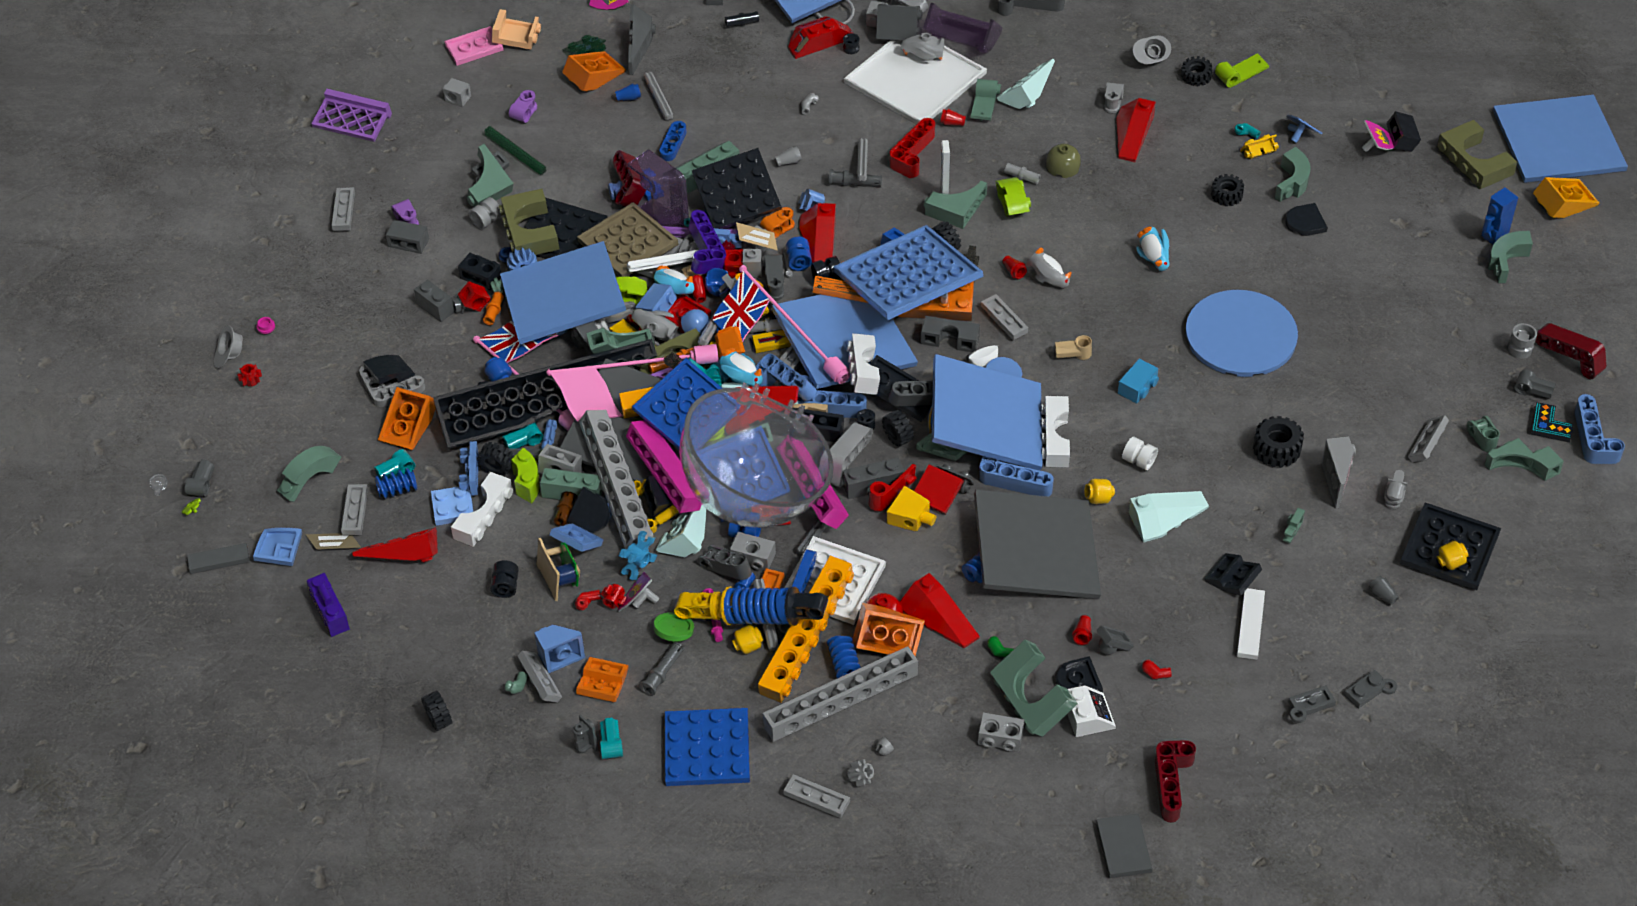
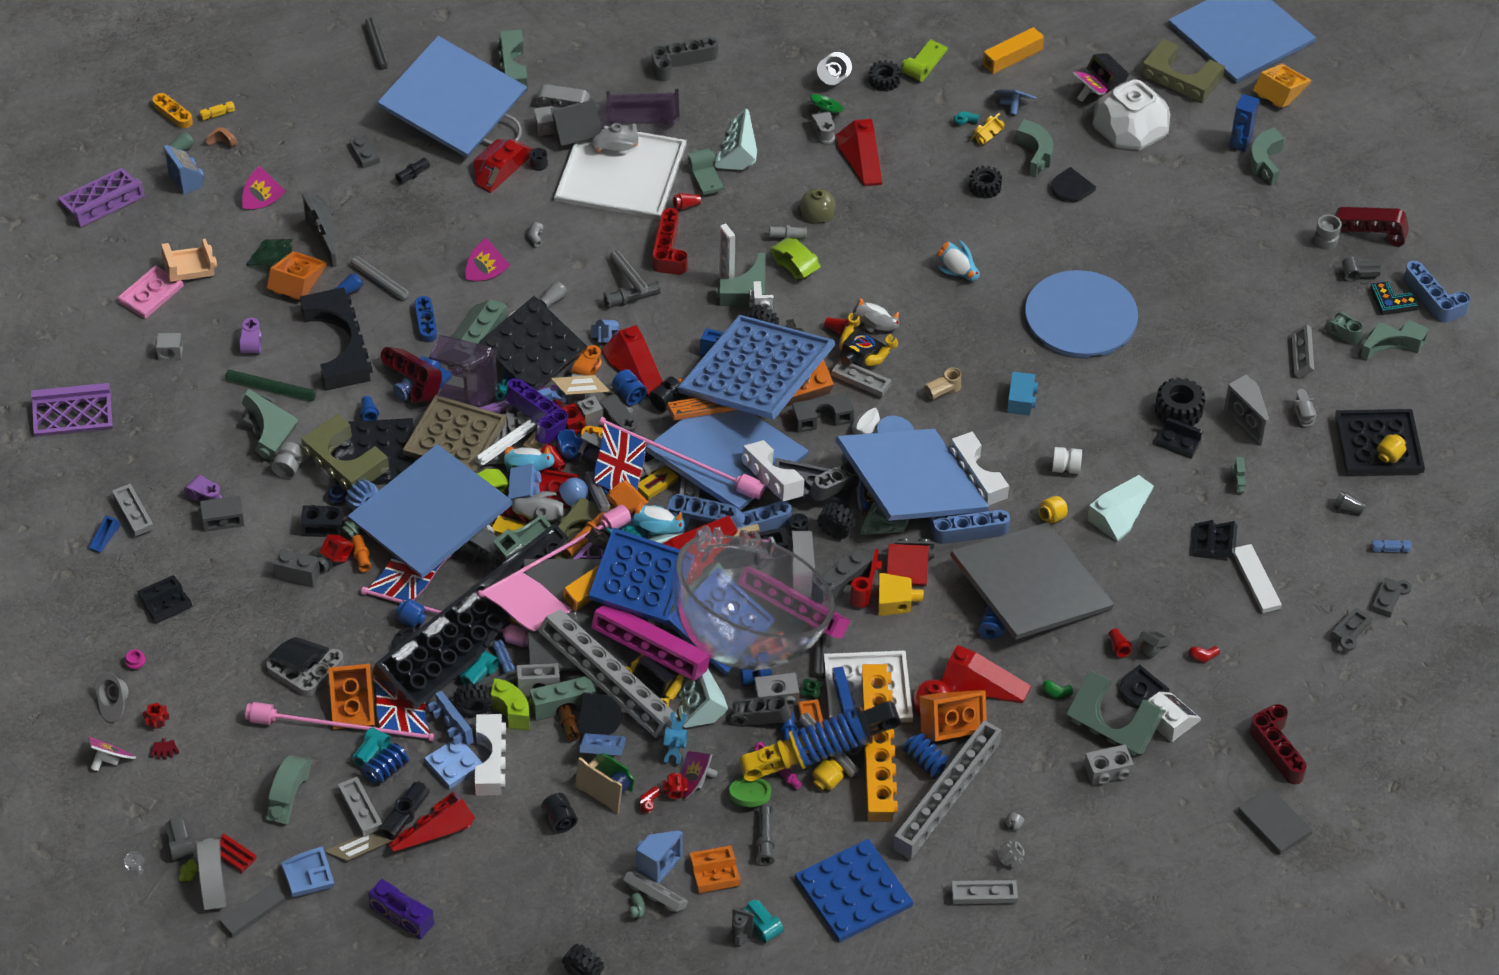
camera: 30 degrees left, 0 degrees up
(193, 388) = (102, 750): none -> white shield
(199, 512) = (211, 873): none -> light grey arch
(230, 496) = (241, 849): none -> red tile
(241, 404) = (164, 748): none -> dark red piece
(310, 220) = (104, 533): none -> blue piece
(320, 287) = (164, 598): none -> black slope
(385, 526) = (398, 818): none -> black piece
(429, 451) = (393, 714): none -> flag
(577, 196) = (368, 409): none -> blue cone
(588, 156) = (352, 364): none -> black arch
(748, 111) = (485, 262): none -> dark pink shield
(785, 566) = (811, 693): none -> dark green plate
(952, 216) = (757, 297): none -> white bracket
(1018, 290) = (861, 348): none -> torso
(1127, 77) = (826, 104): none -> green dish
(1260, 473) = (1180, 438): none -> black bracket
(1328, 86) = (1013, 50): none -> light orange brick
(1400, 644) = (1391, 546): none -> medium blue axle
(1401, 177) = (1132, 116): none -> white rock

